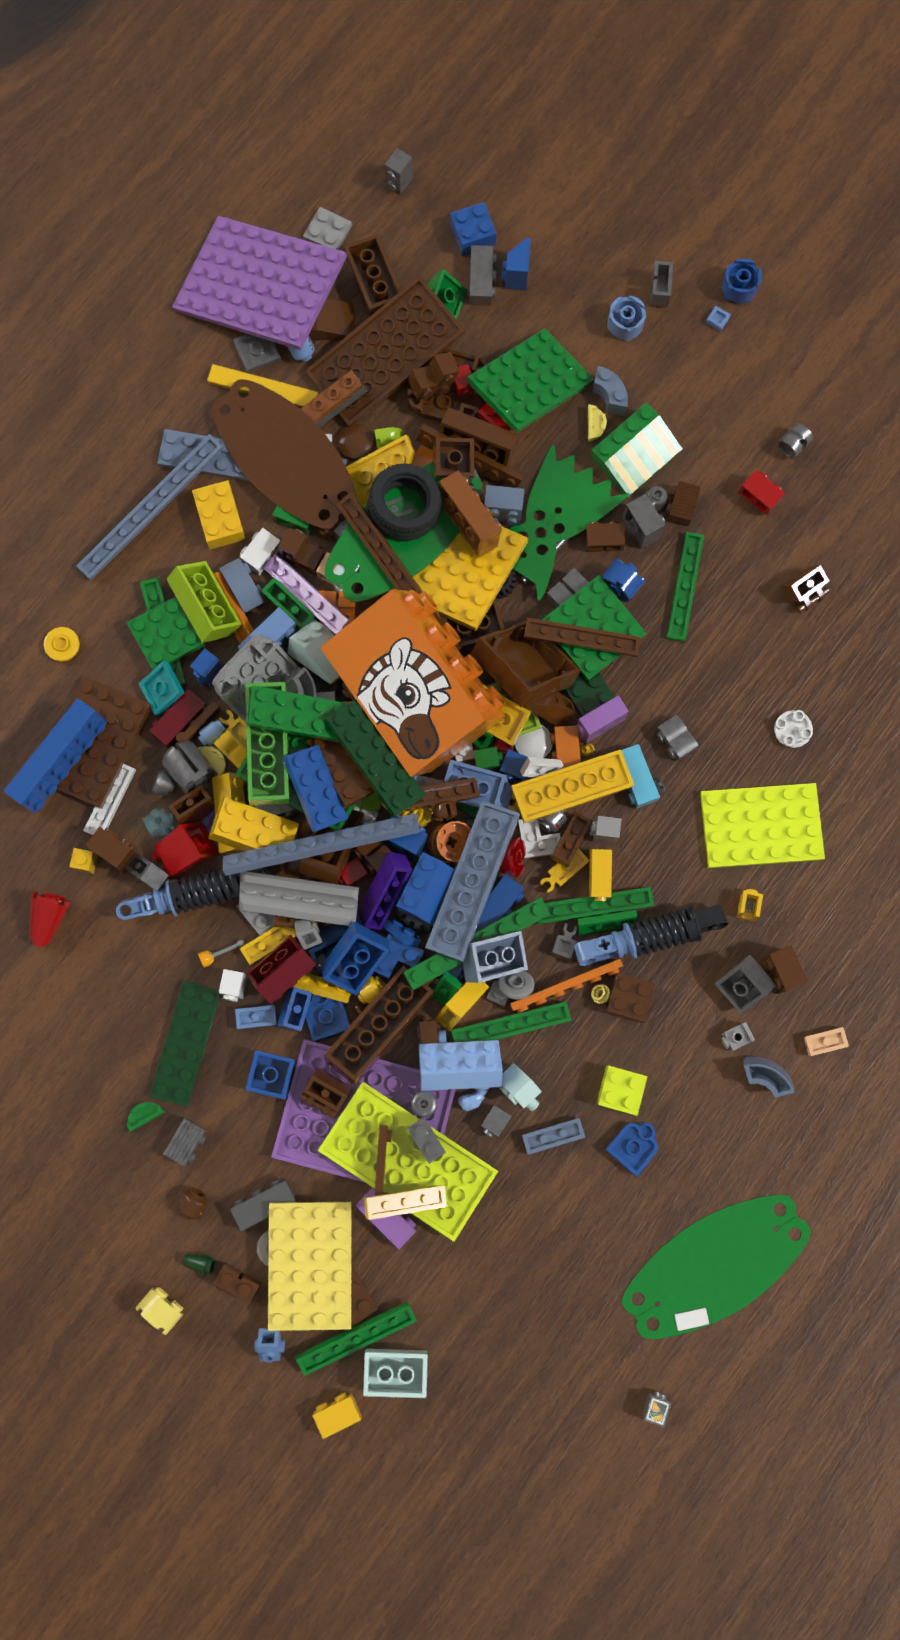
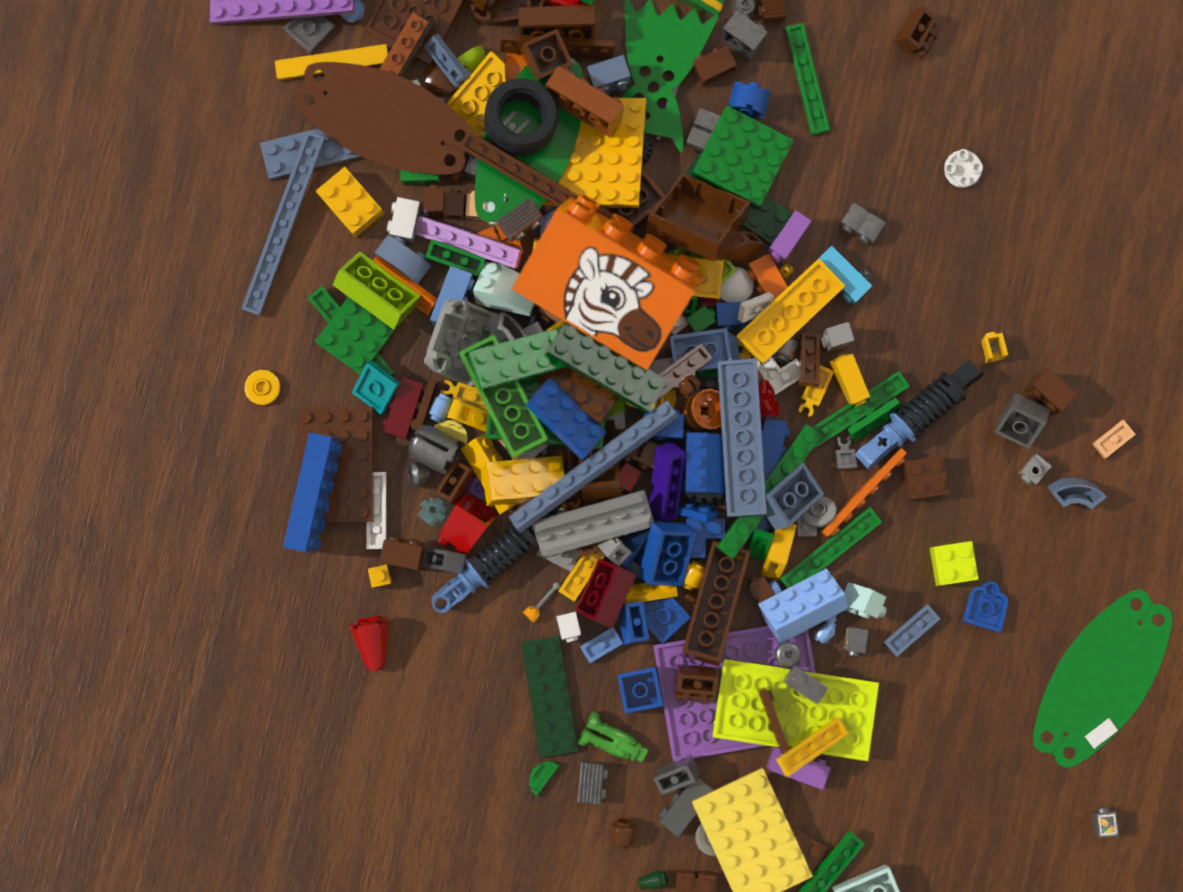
camera: 20 degrees left, 5 degrees up
(206, 668) = (409, 351): blue brick -> none
(230, 1121) = (622, 746): none -> bright green piece
(267, 1171) = (676, 774): none -> flat silver brick
(359, 593) = (520, 220): none -> flat silver brick
(364, 428) = (447, 61): none -> sand blue plate
(581, 637) = (738, 170): reddish brown plate -> none
(598, 990) = (892, 486): light yellow plate -> none
(762, 825) = (973, 270): neon yellow plate -> none

